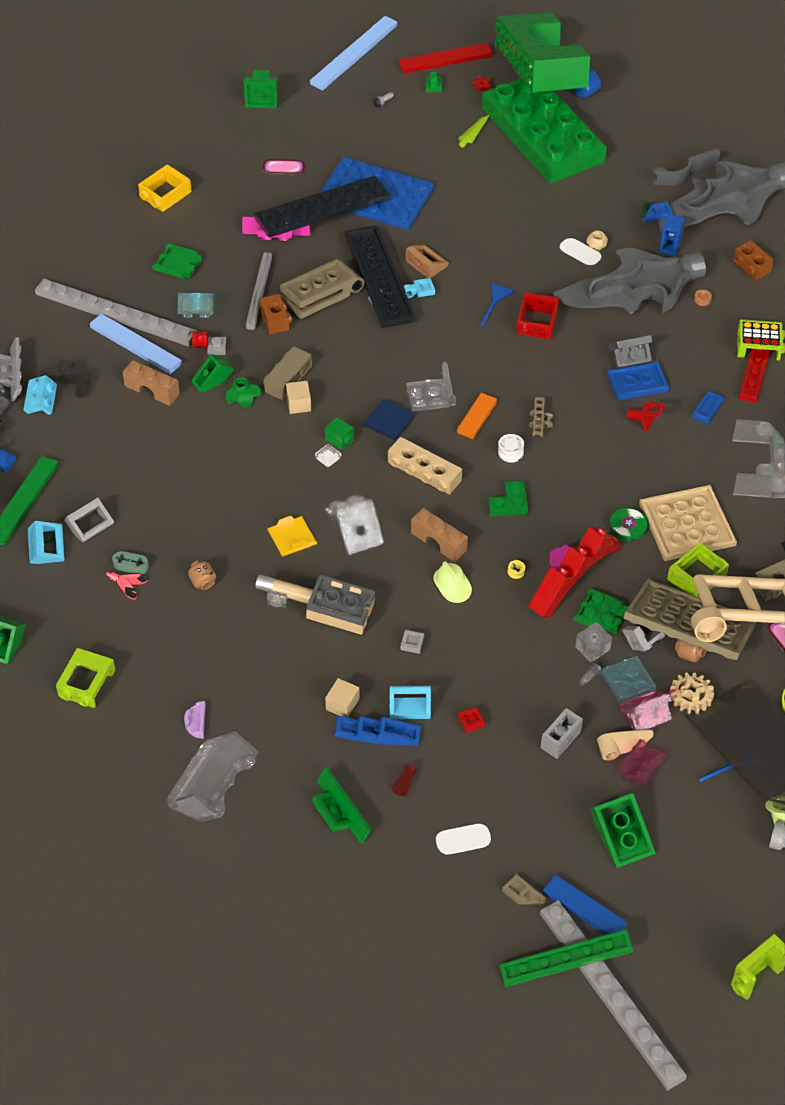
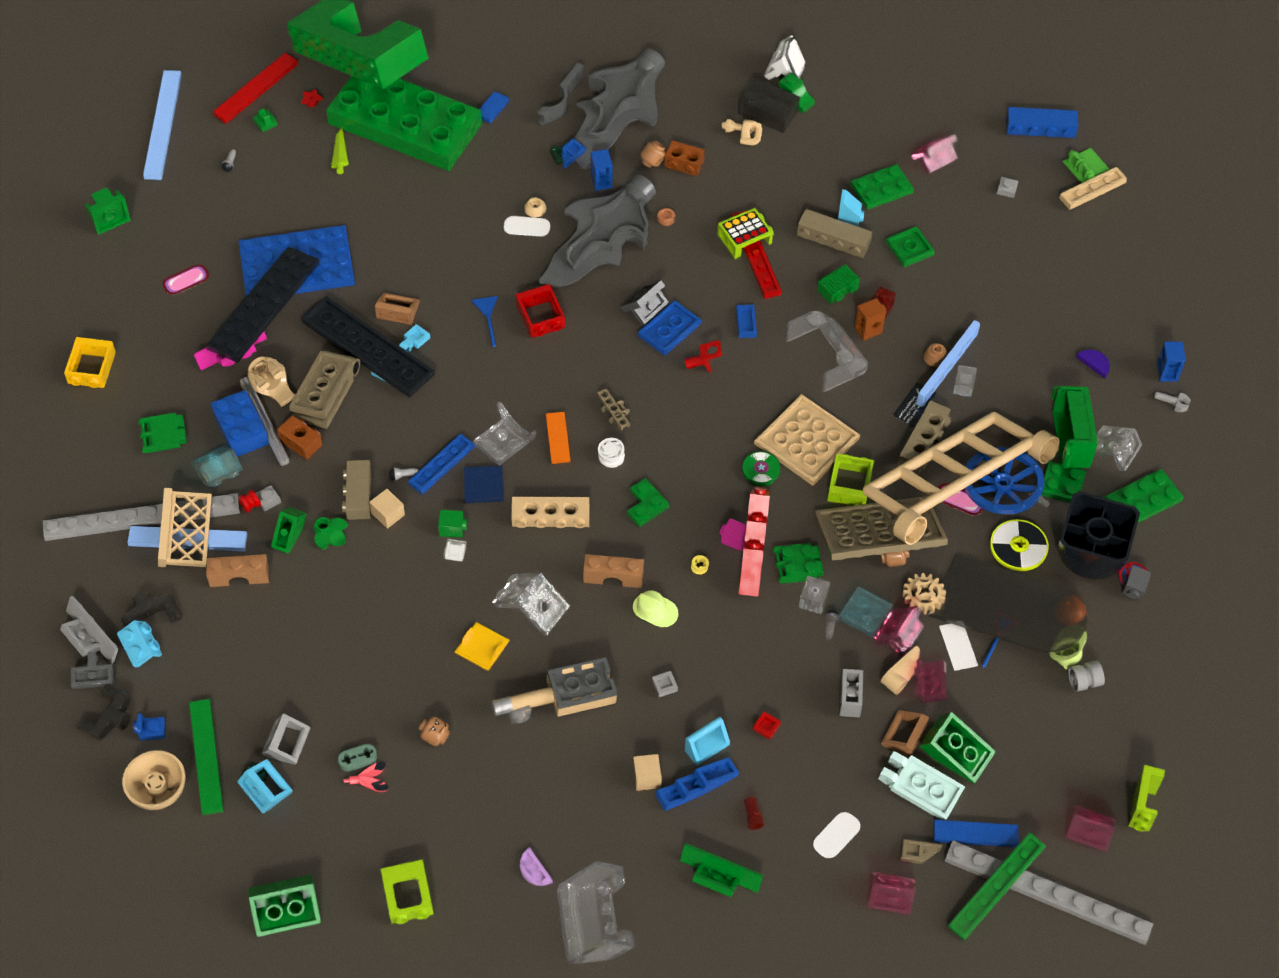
camera: 35 degrees left, 5 degrees up
(125, 321) = (167, 531): none -> tan fence
(236, 282) = (239, 423): none -> blue brick
(283, 260) = (270, 379): none -> tan hair
(327, 377) = (396, 473): none -> light grey piece
(368, 388) = (441, 464): none -> blue tile
(469, 908) = (892, 893): none -> clear pink bracket
(568, 843) = (922, 785): none -> light aqua tile
(592, 799) = (908, 748): none -> medium nougat tile
(622, 153) = (493, 106): none -> blue tile
(639, 640) = (849, 569): light grey bracket -> none
(691, 753) = (958, 646): none -> white sticker
(691, 962) = (1091, 828): none -> clear pink bracket
(727, 243) = (653, 154): none -> medium nougat head

